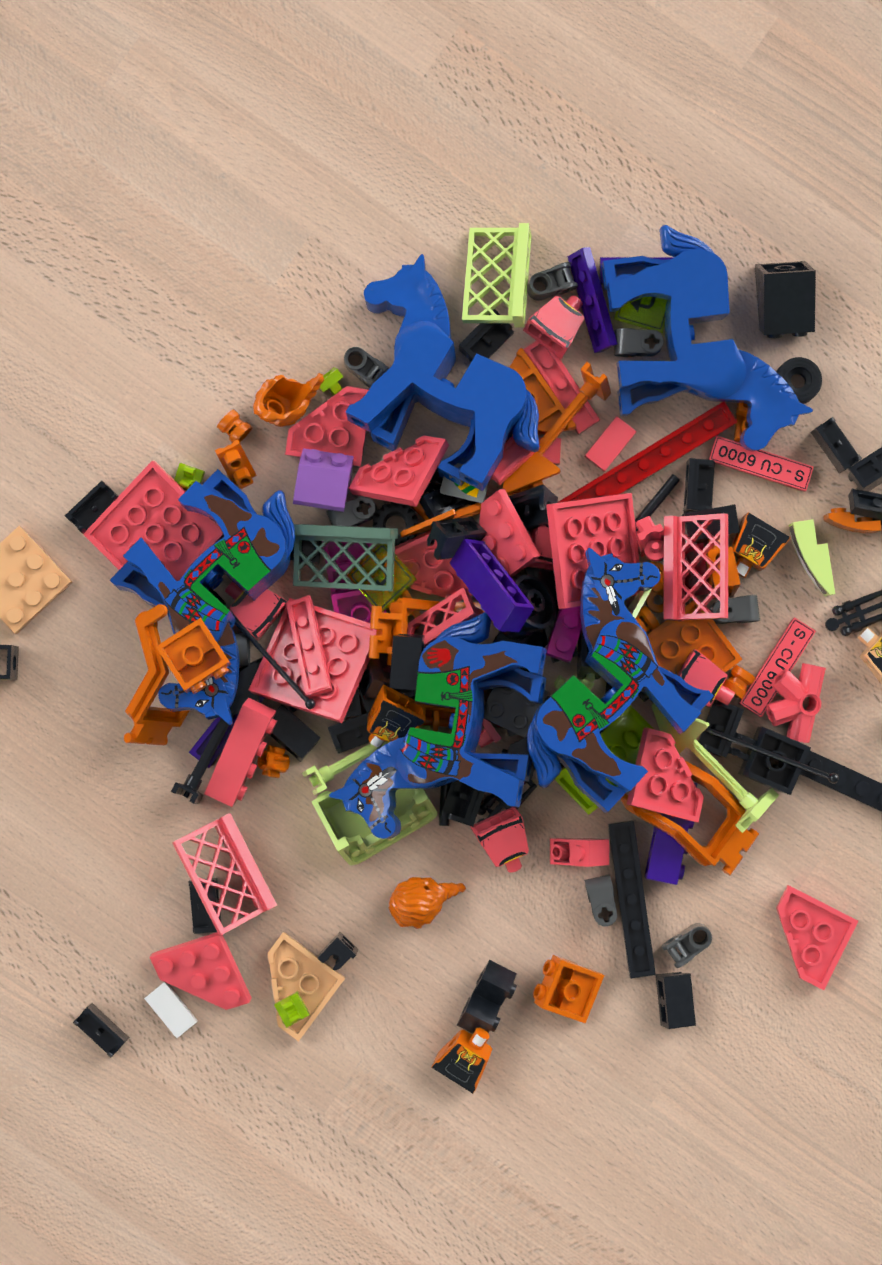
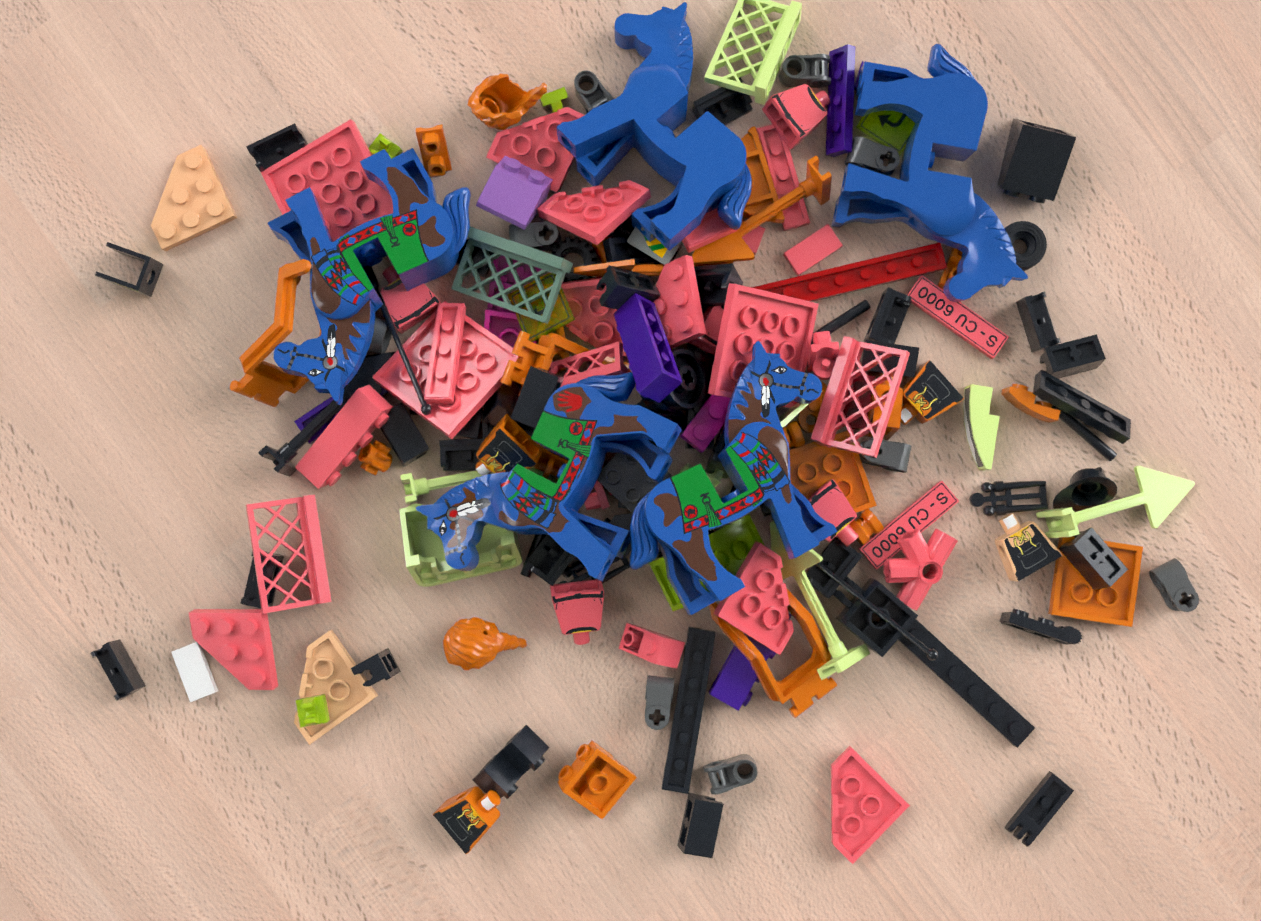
camera: 20 degrees right, 0 degrees up
(194, 656) = (320, 322): orange plate -> none
(234, 426) = (444, 113): orange wheel -> none

